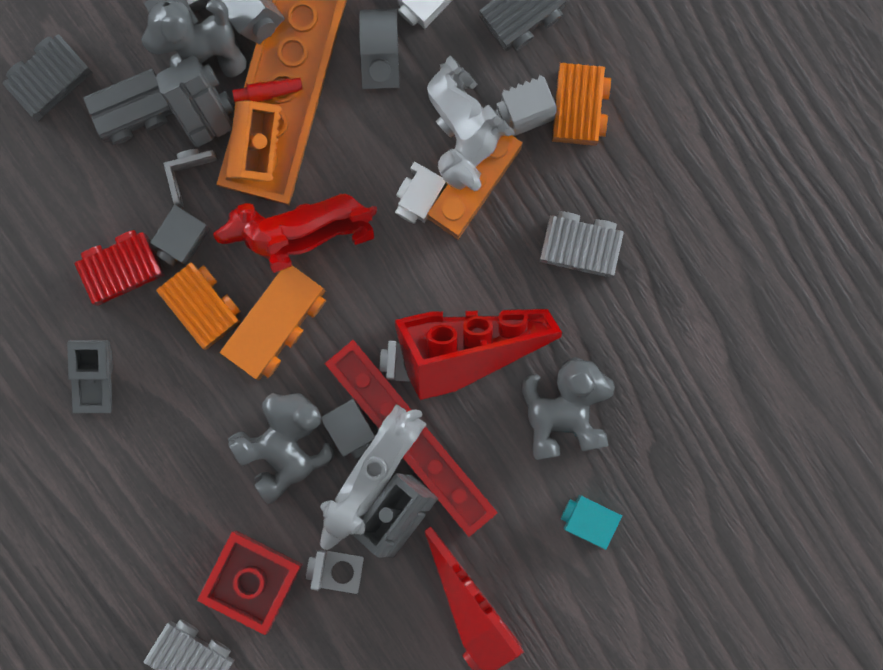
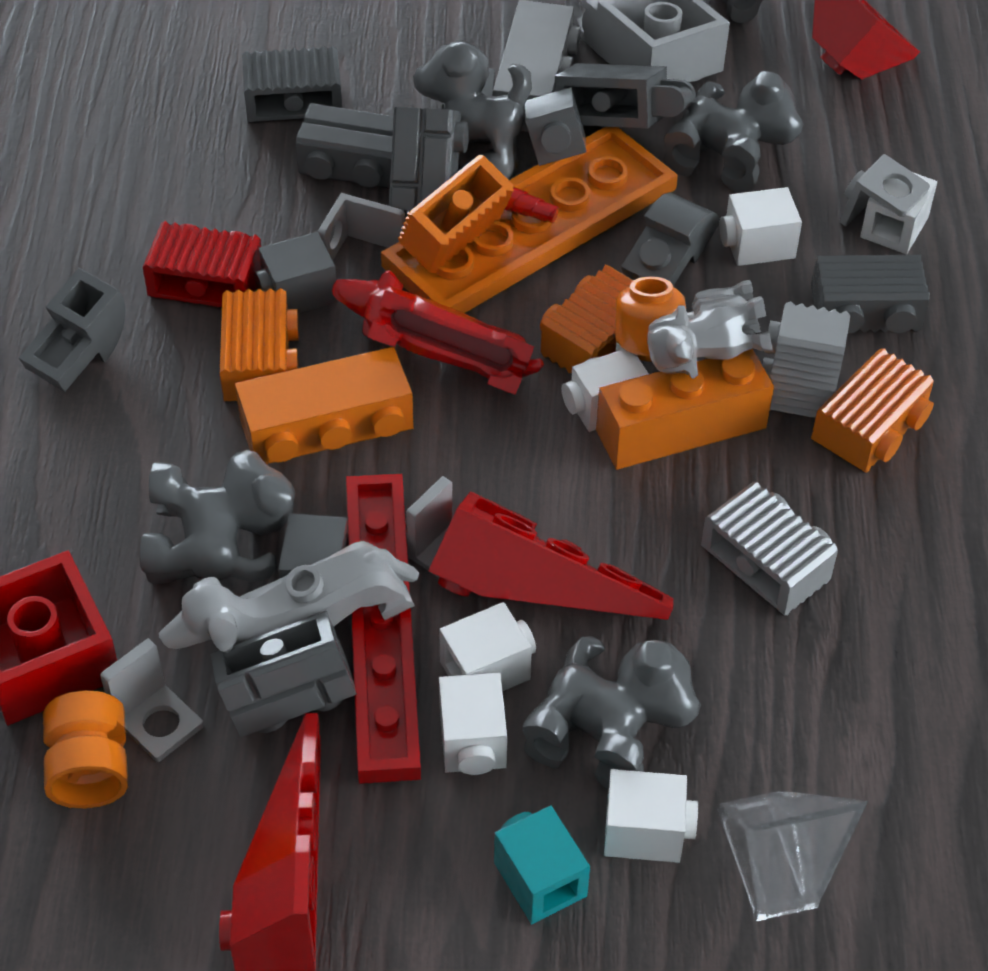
camera: 30 degrees right, 35 degrees down
(327, 623) = (86, 749): none -> orange wheel
(380, 147) = (585, 321): none -> orange brick
(423, 144) = (638, 307): none -> orange head
(481, 420) = (488, 644): none -> white brick
(505, 469) = (473, 723): none -> white brick
(626, 458) = (648, 816): none -> white brick
(699, 423) = (788, 846): none -> clear slope

